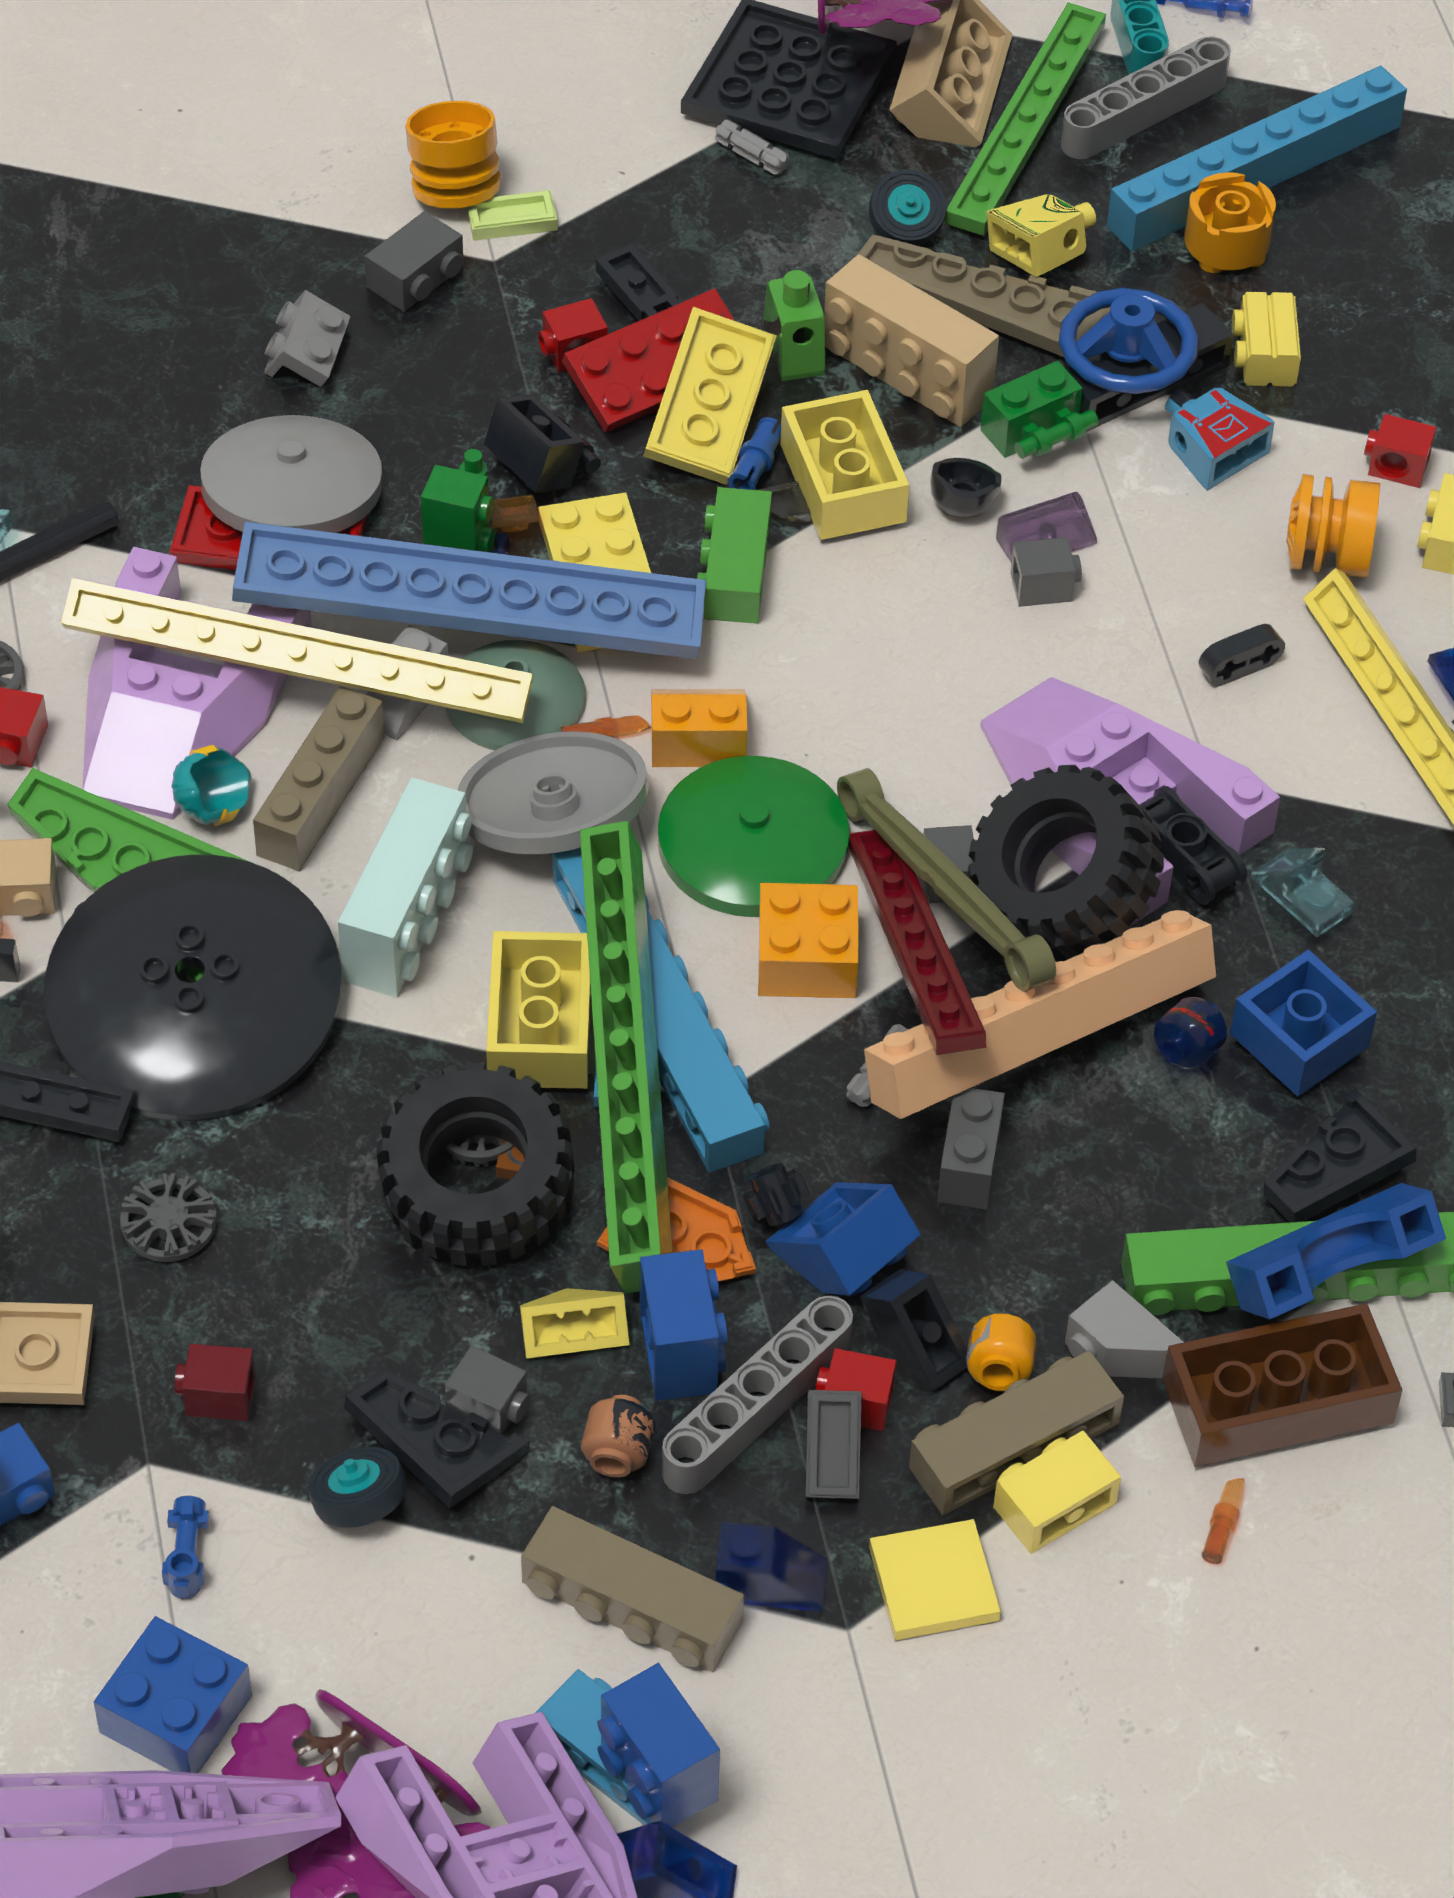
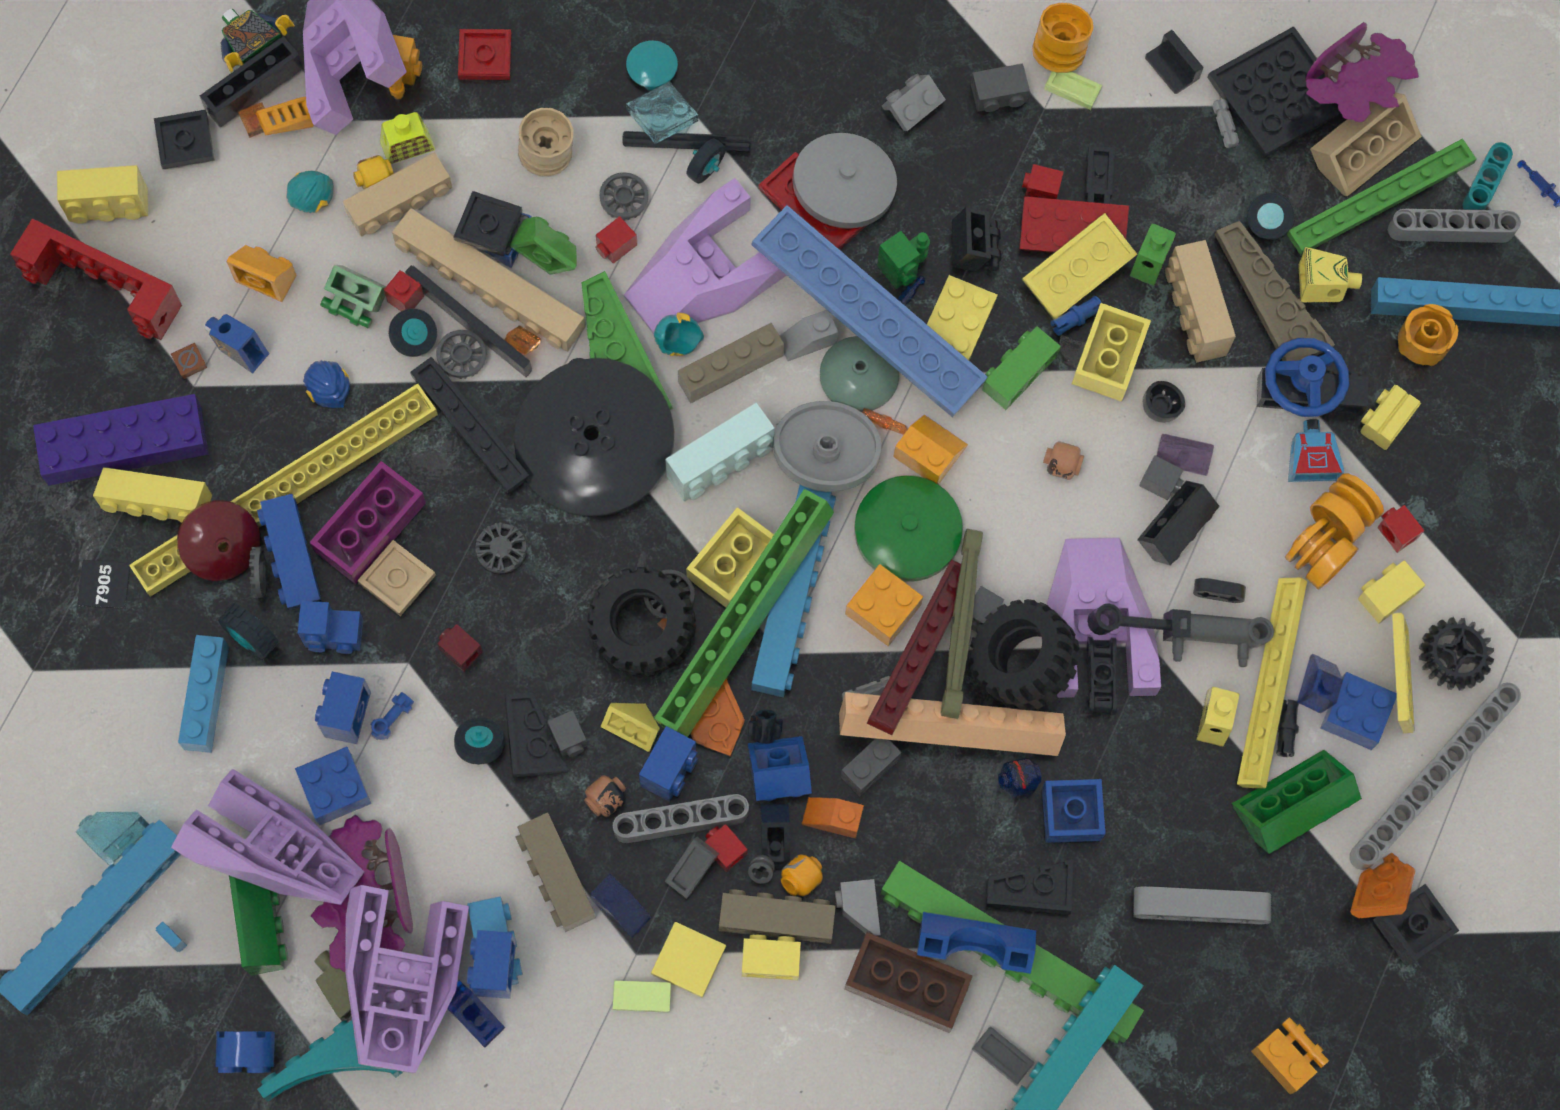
camera: 35 degrees right, 20 degrees up
(69, 553) = (706, 160): none -> black wheel
(100, 1569) = (343, 707): none -> blue brick
(297, 650) = (761, 293): plate -> none
(514, 513) = (934, 270): clear orange plate -> none
(625, 115) = (1174, 63): none -> black panel
(895, 627) = (1063, 460): none -> nougat head
(909, 1676) = (641, 996): none -> yellowish green tile
(946, 1393) = (766, 875): none -> dark grey bush
(979, 1245) = (833, 815): none -> orange slope
(1035, 412) = (1232, 381): green brick -> none
(1116, 604) = (1178, 522): none -> black brick
(1223, 1521) = (835, 1023): clear orange piece -> none
(1239, 710) = (1182, 626): none -> piece
(1302, 889) = (1141, 737): clear light blue slope -> none
(1320, 441) = (1348, 507): none -> light orange wheel
(1381, 791) = (1217, 713): none -> light yellow torso

